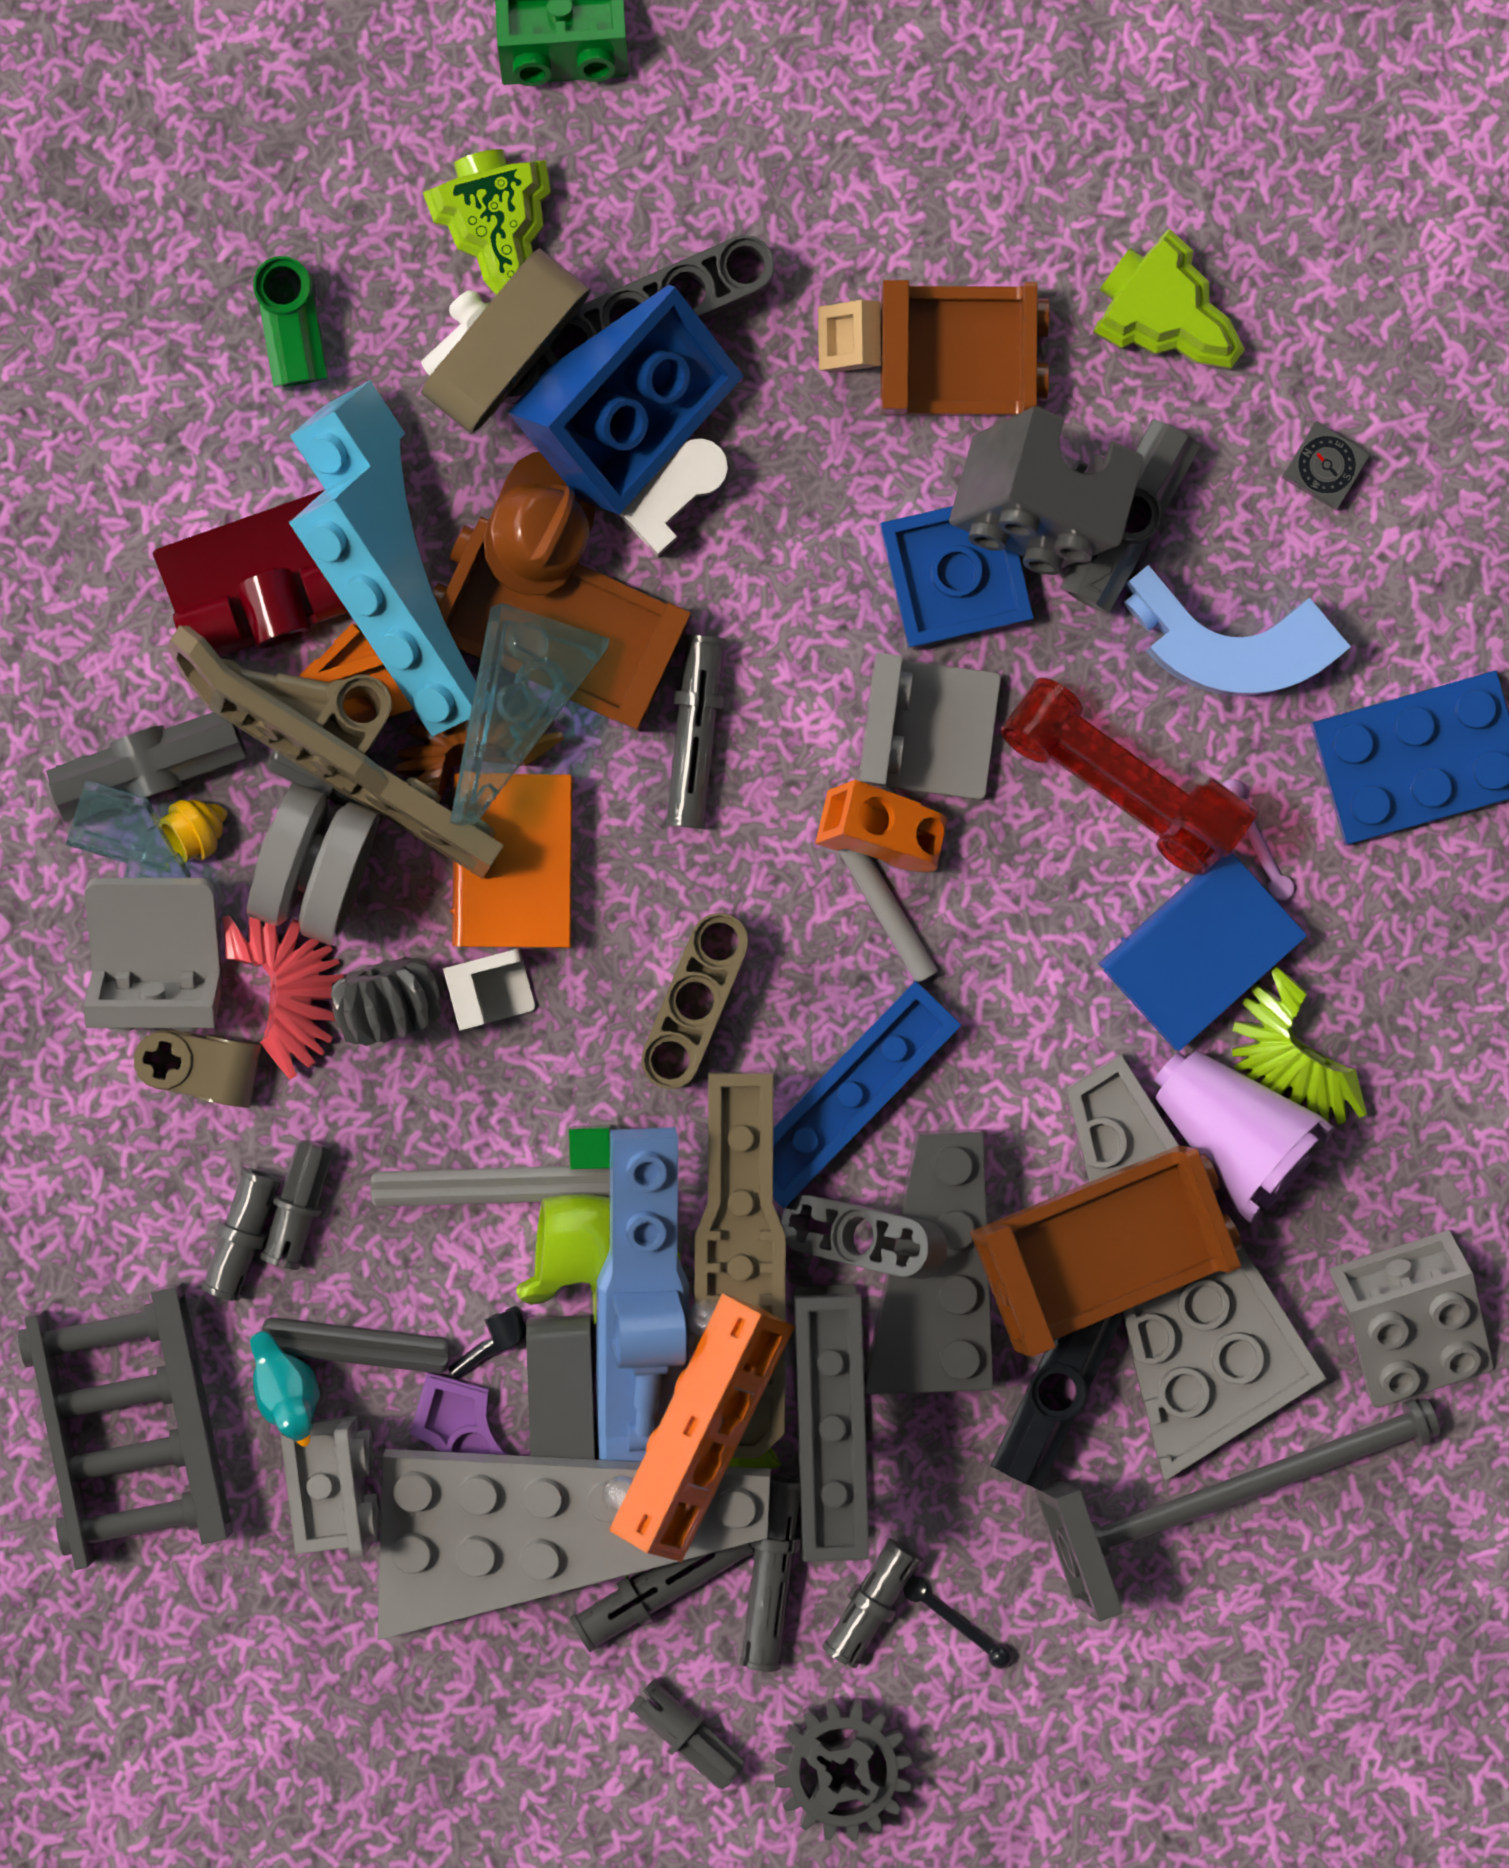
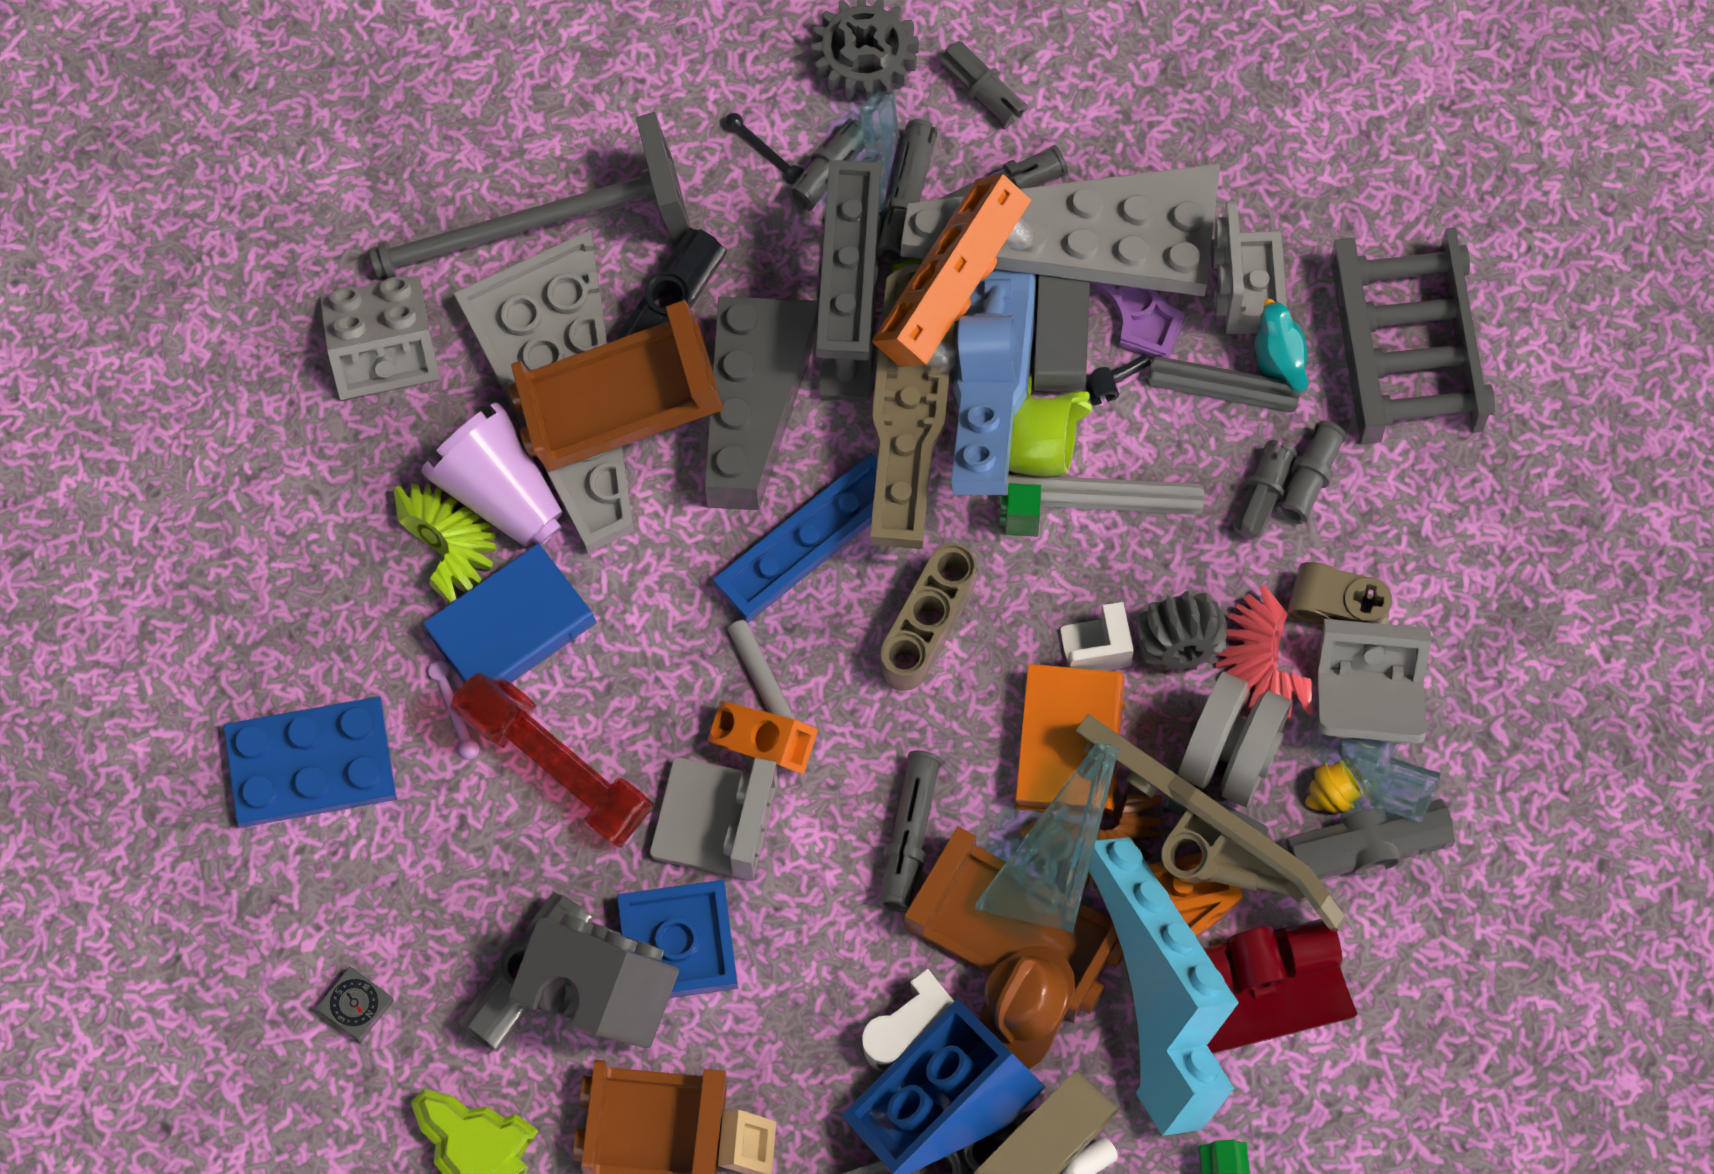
camera: 175 degrees left, 20 degrees down
(810, 1636) = (881, 137): none -> clear light blue tile
(885, 1227) = (788, 417): dark grey beam -> none
(1227, 665) = (450, 842): light blue arch -> none

